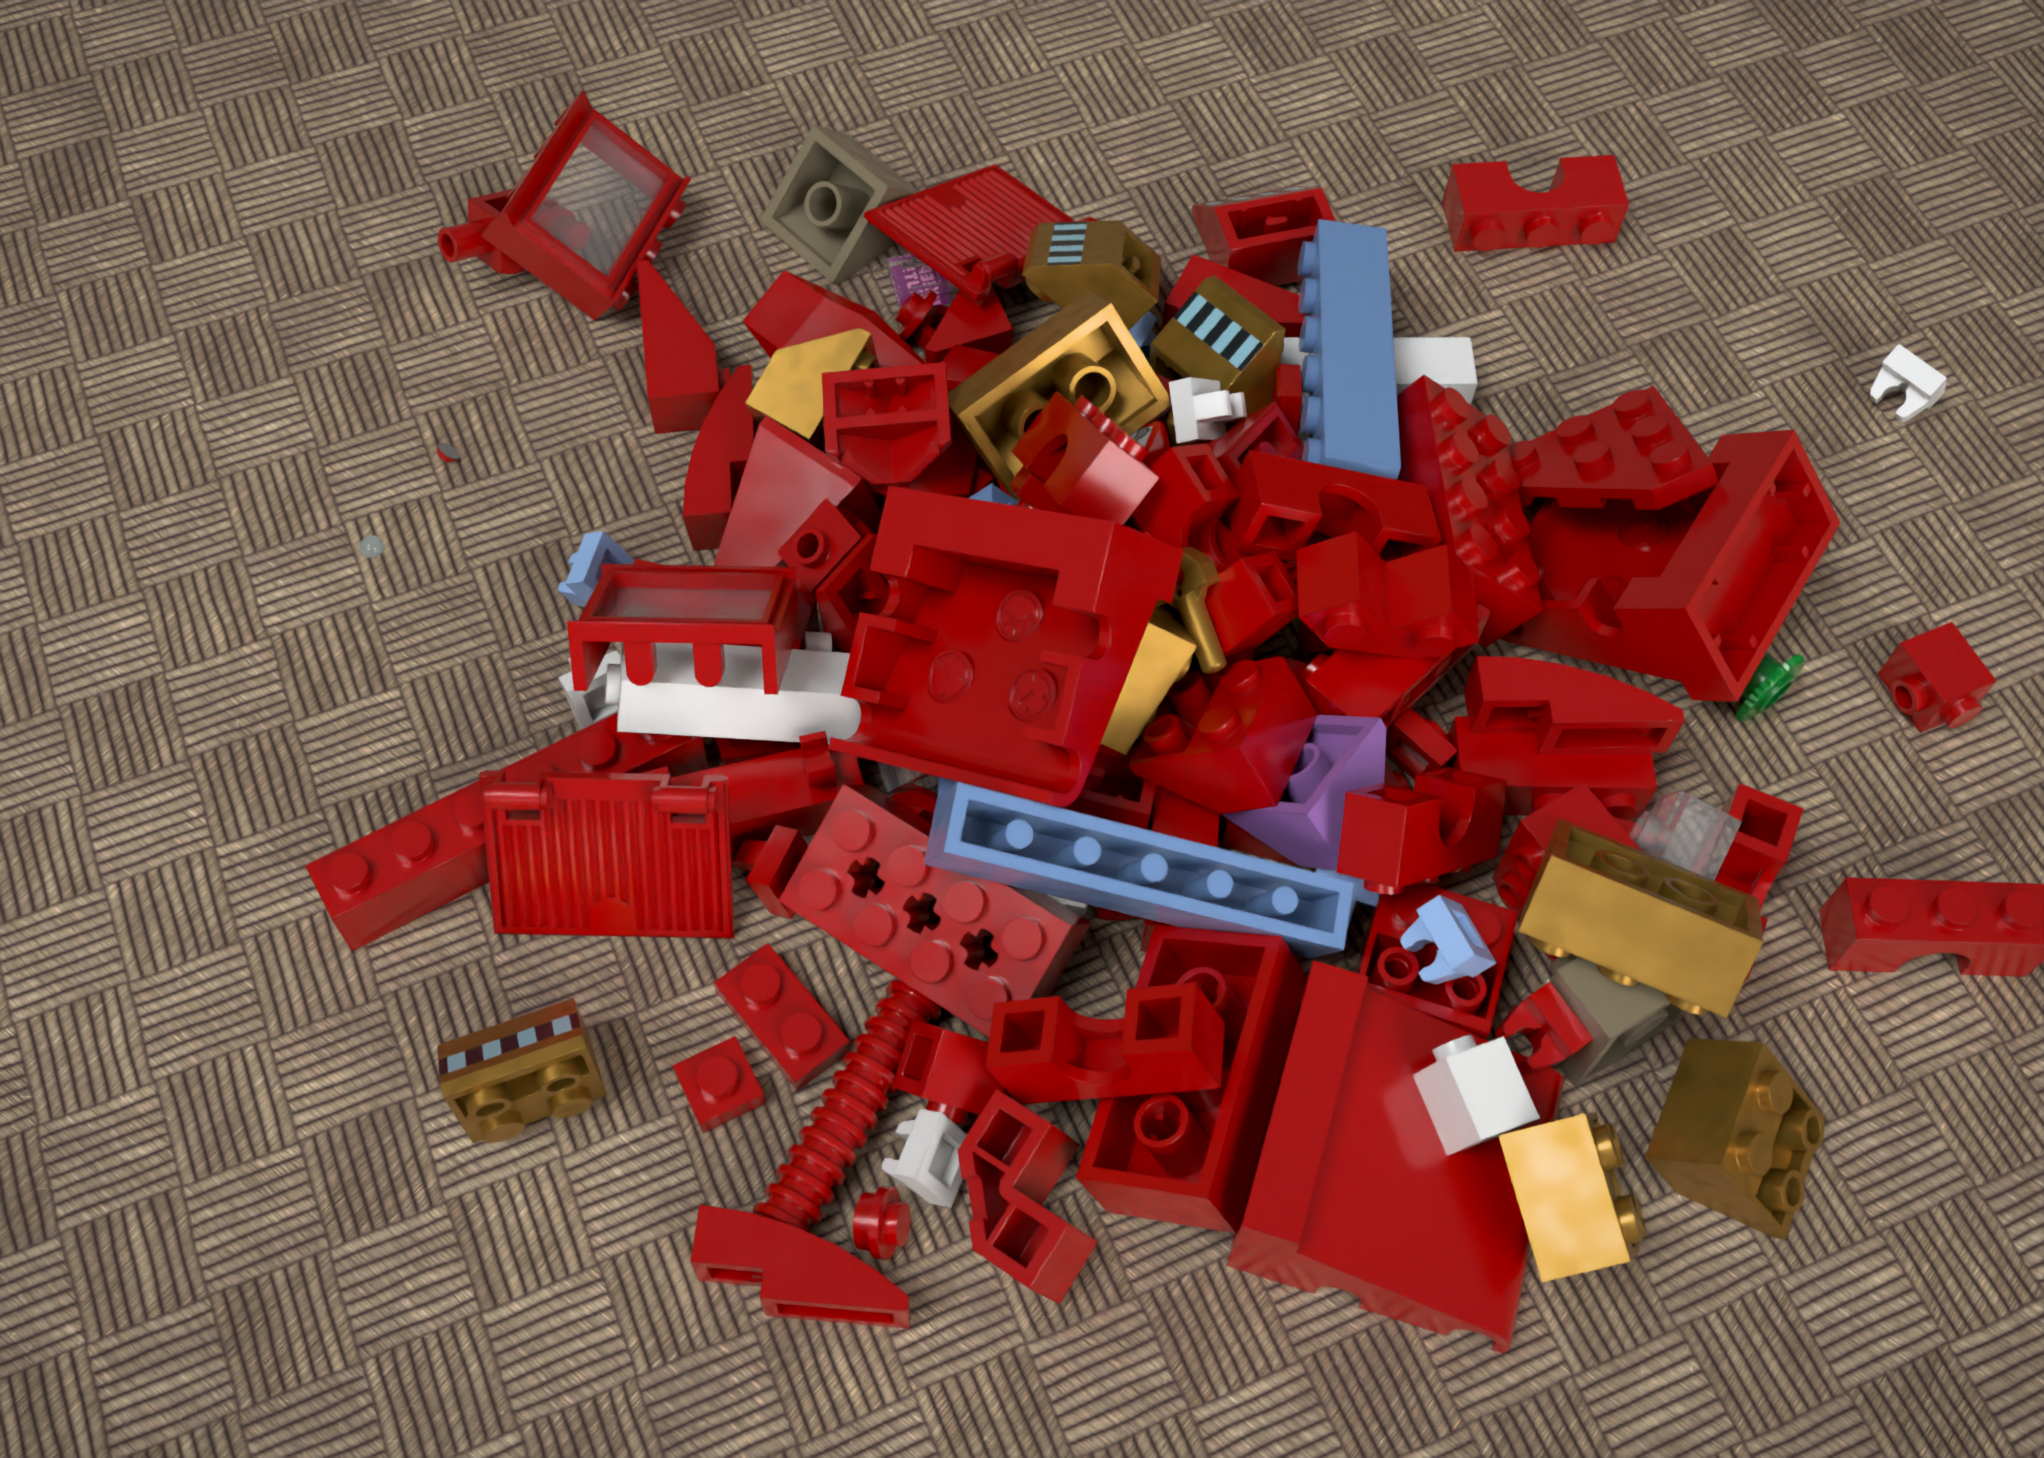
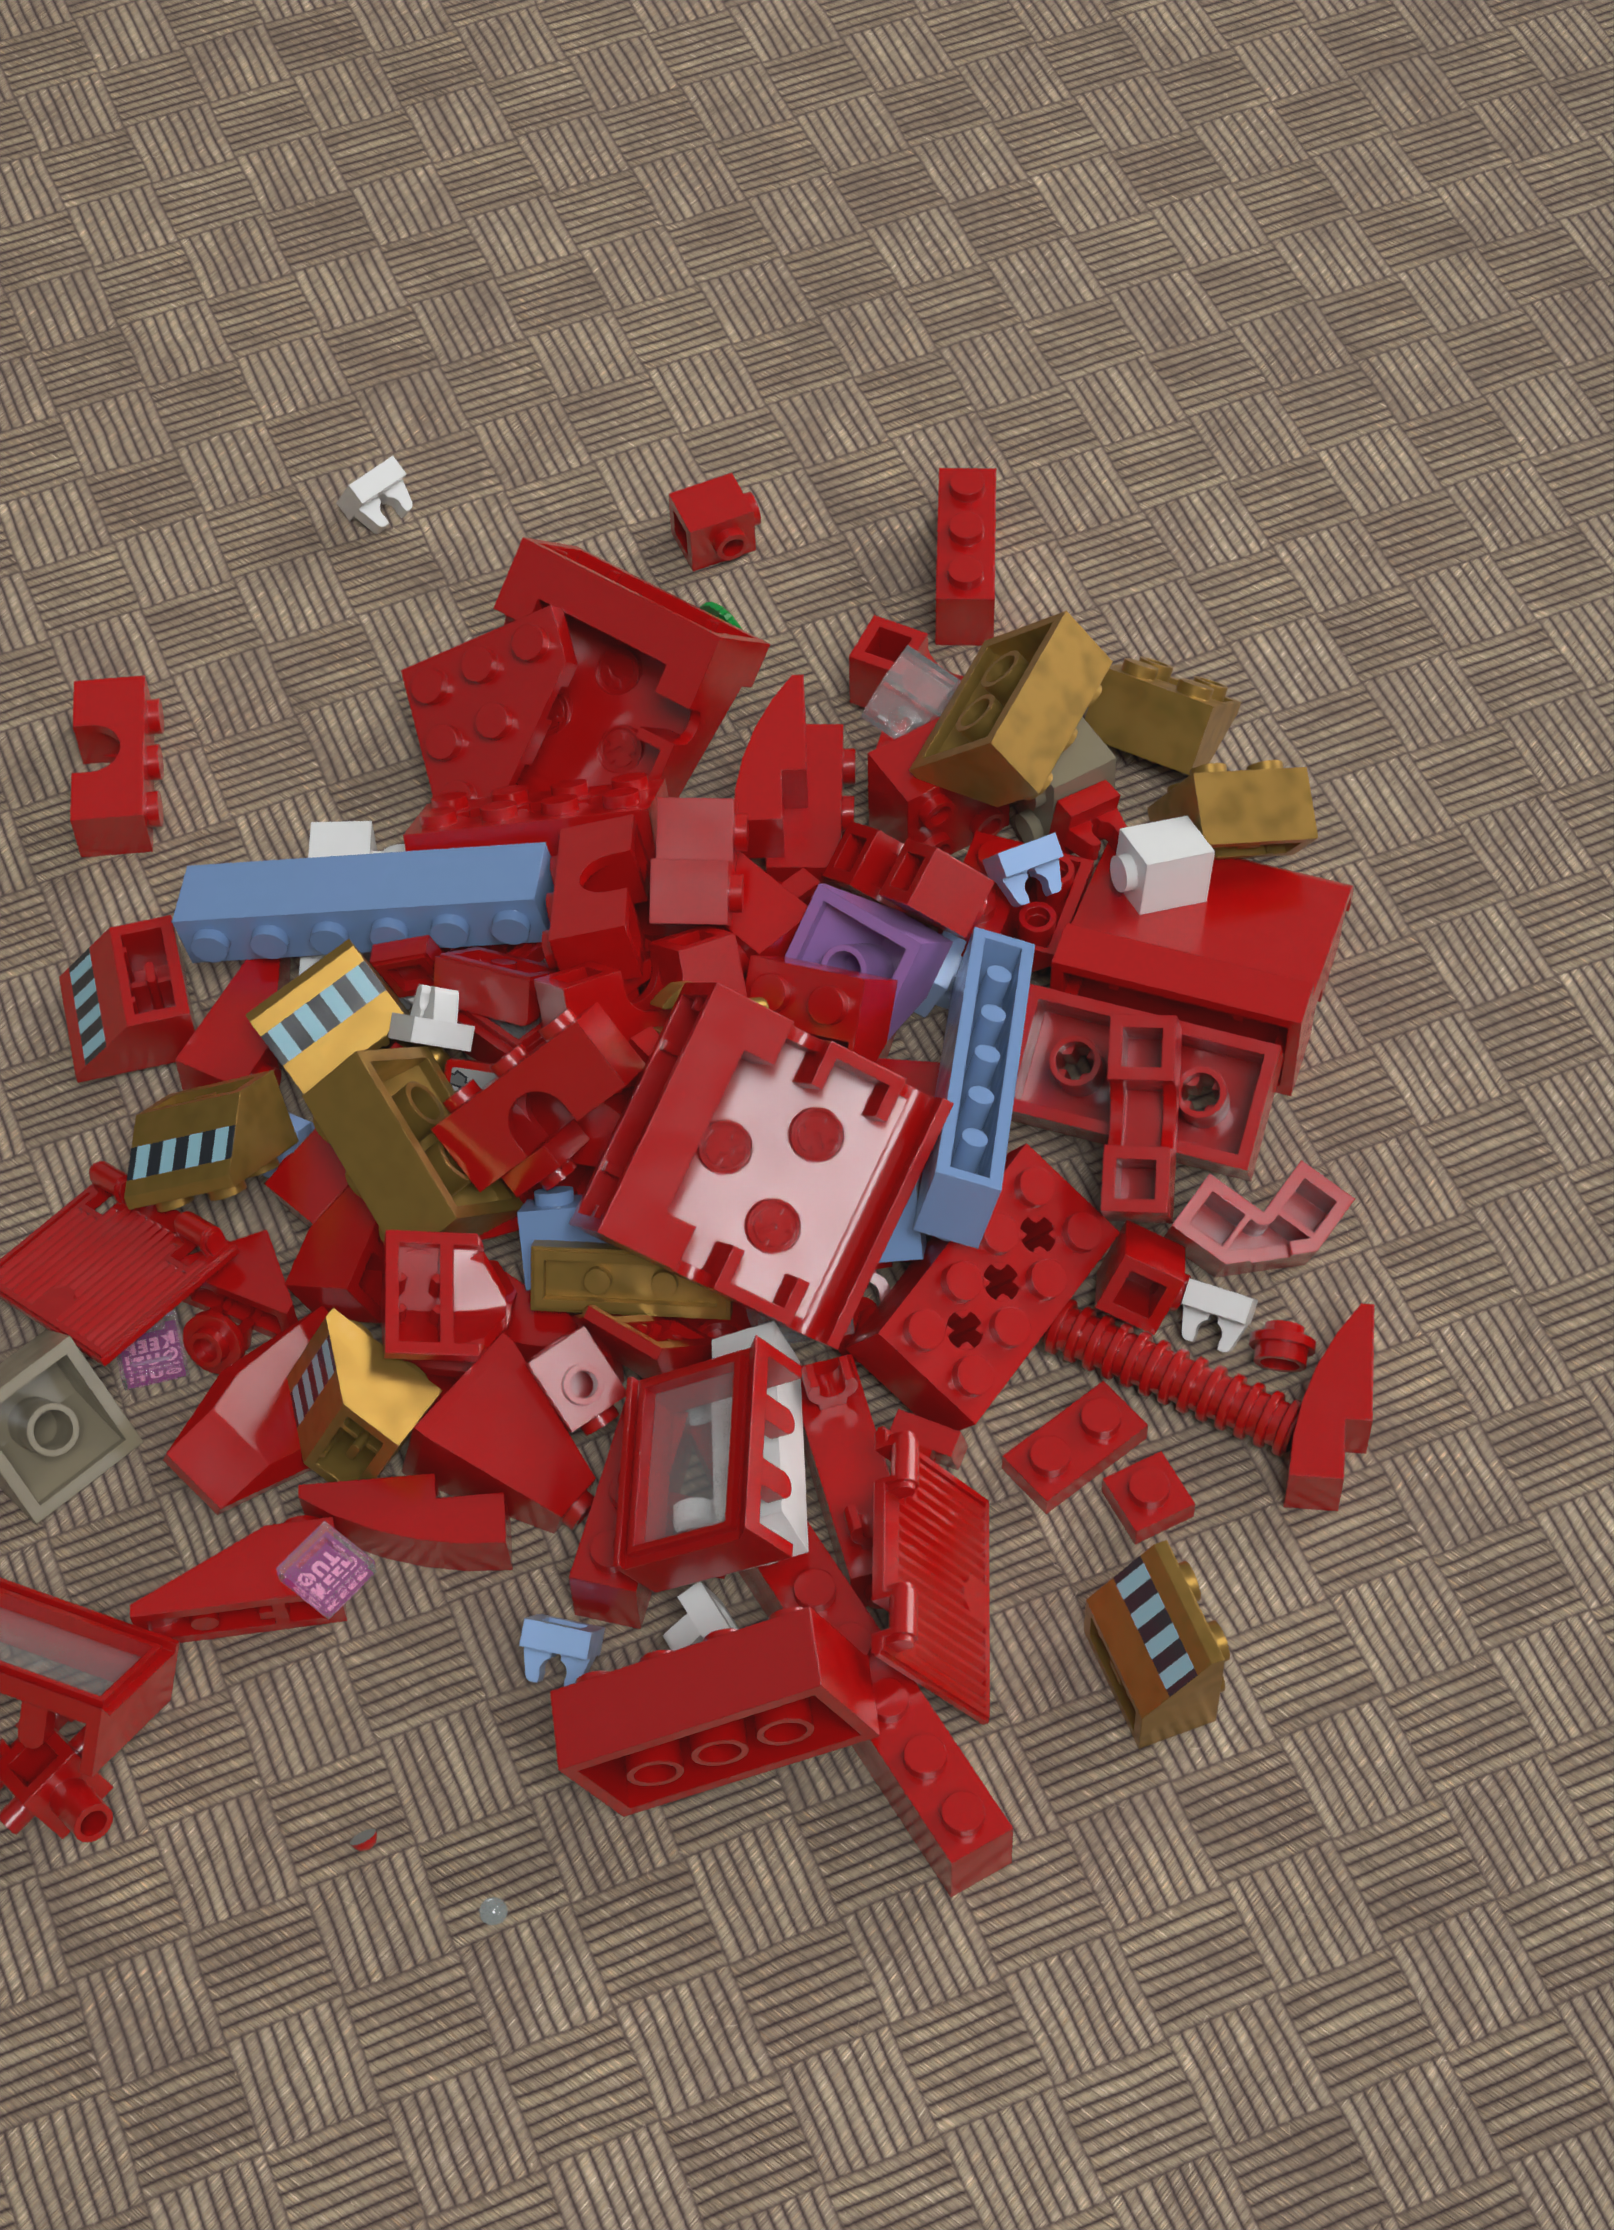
camera: 85 degrees left, 5 degrees down
(463, 660) = (714, 1711): none -> red brick
(660, 383) = (326, 1570): none -> clear tile

